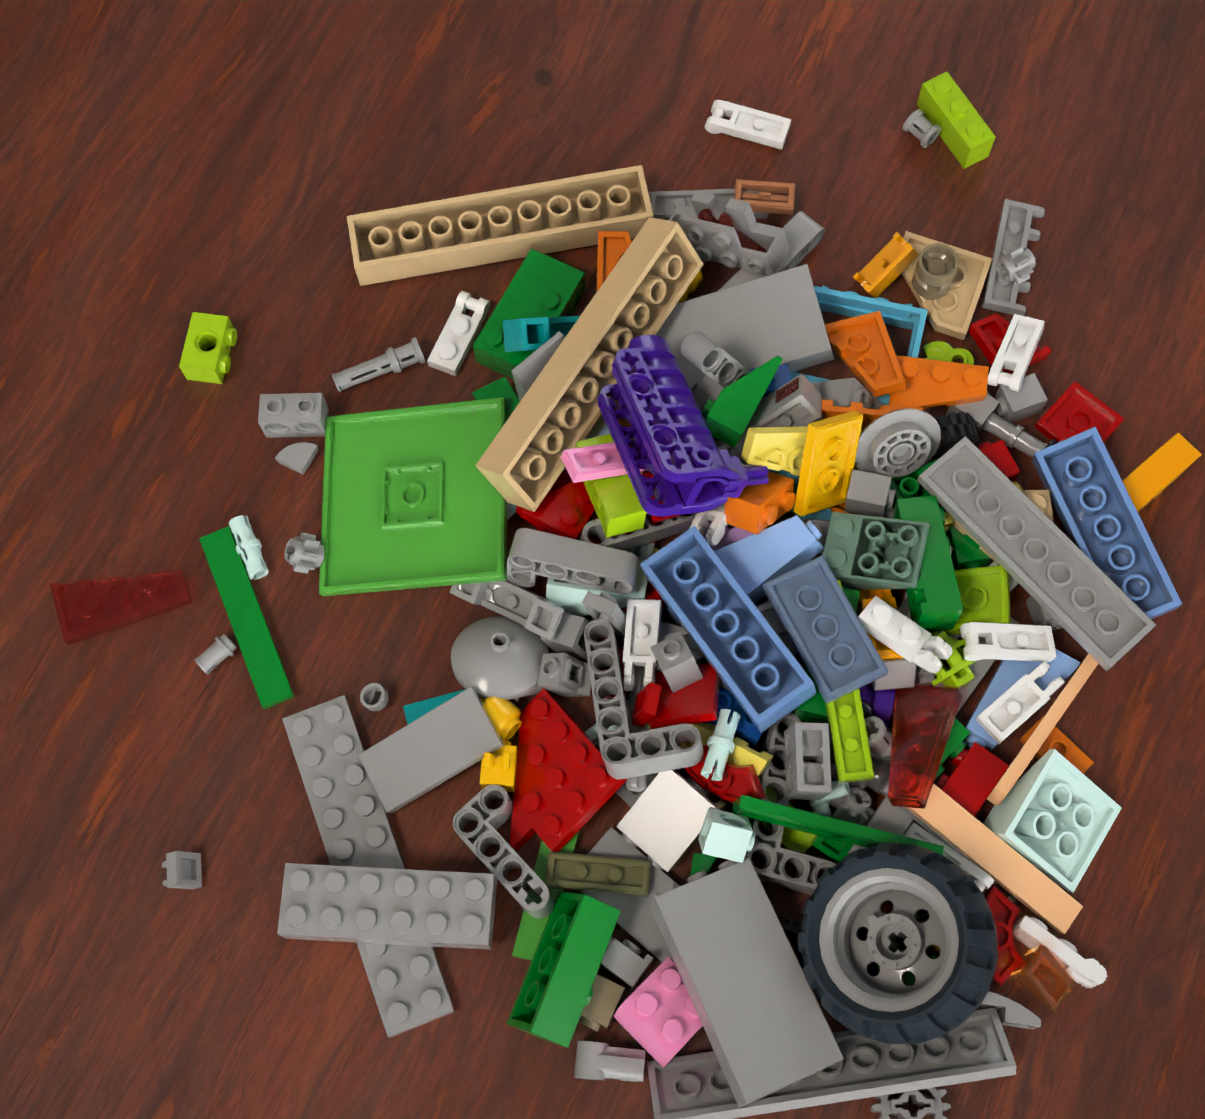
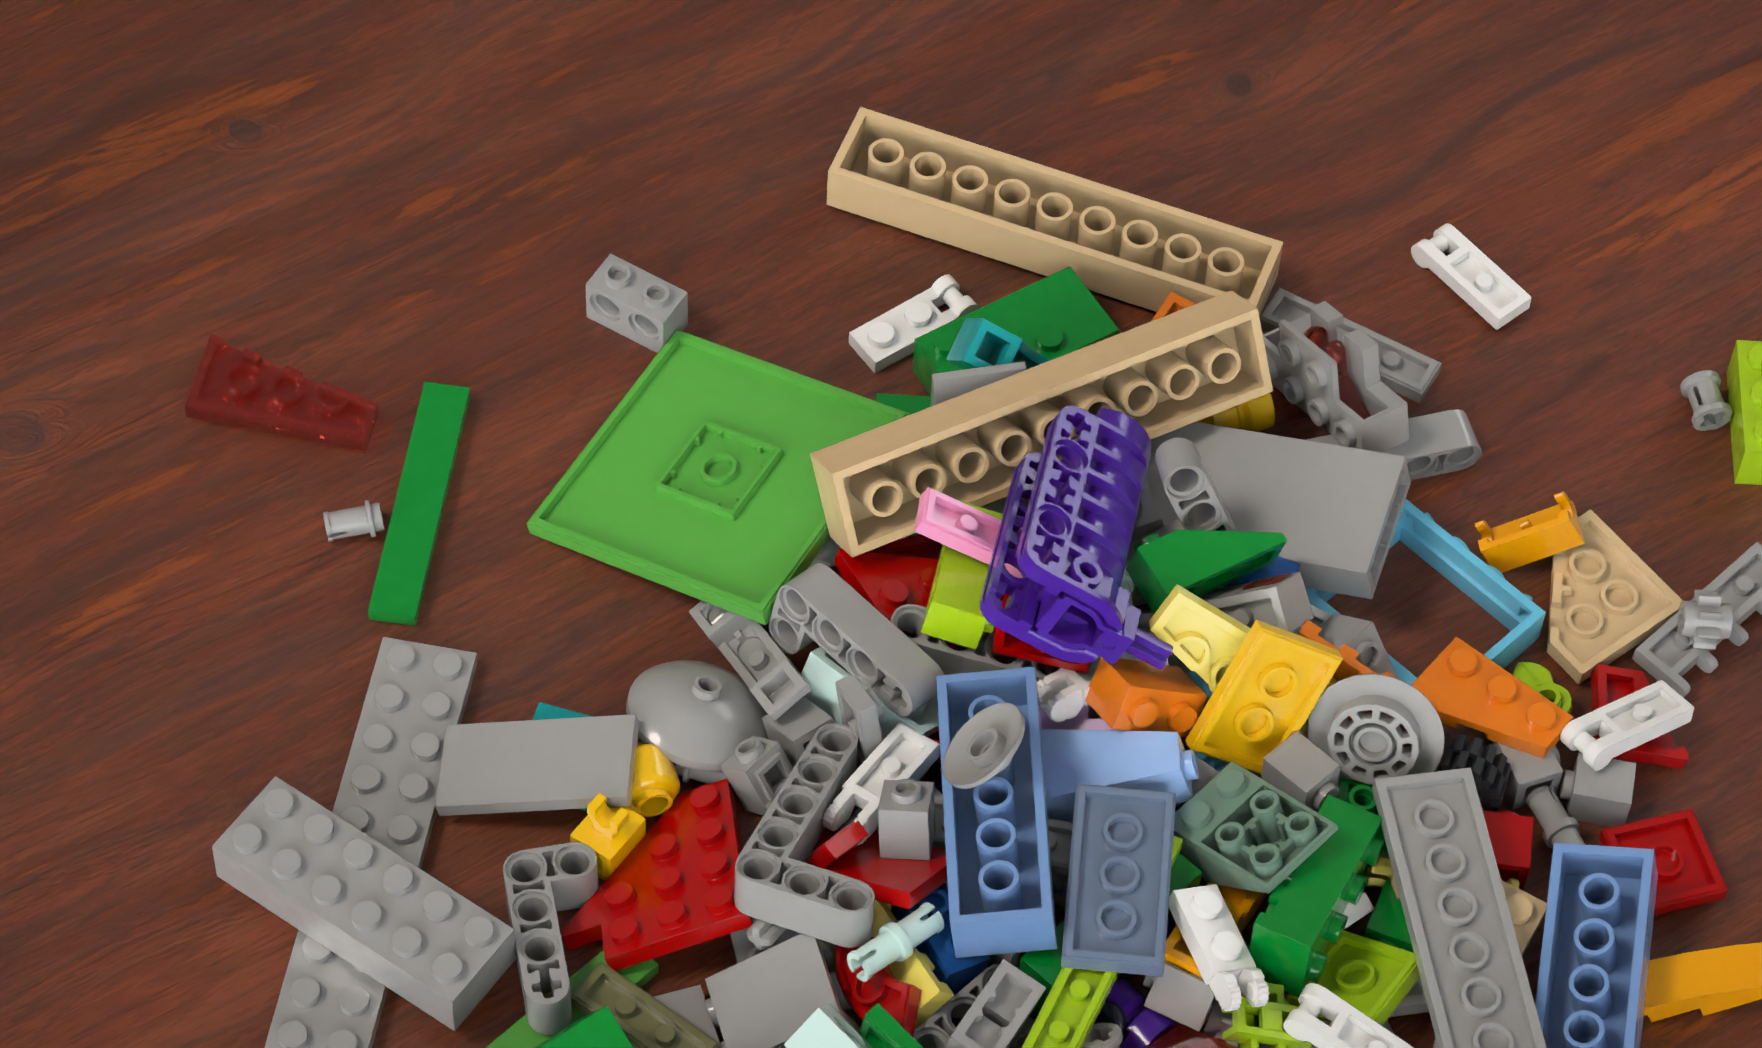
camera: 25 degrees right, 15 degrees down
(183, 870) = (148, 734): light grey tile -> none
(203, 332) = (585, 173): lime brick -> none
(248, 547) = (477, 425): light aqua pin -> none
(298, 456) = (610, 357): light grey tile -> none
(304, 553) = (540, 465): light grey gear -> none
(370, 695) = (511, 675): light grey hinge -> none
(393, 360) = (810, 310): light grey pin -> none
(706, 599) = (984, 745): none -> light grey dish
(764, 201) = (1423, 374): nougat tile -> none
(868, 352) = (1421, 611): orange wing -> none
(935, 271) = (1586, 568): dark tan wheel -> none

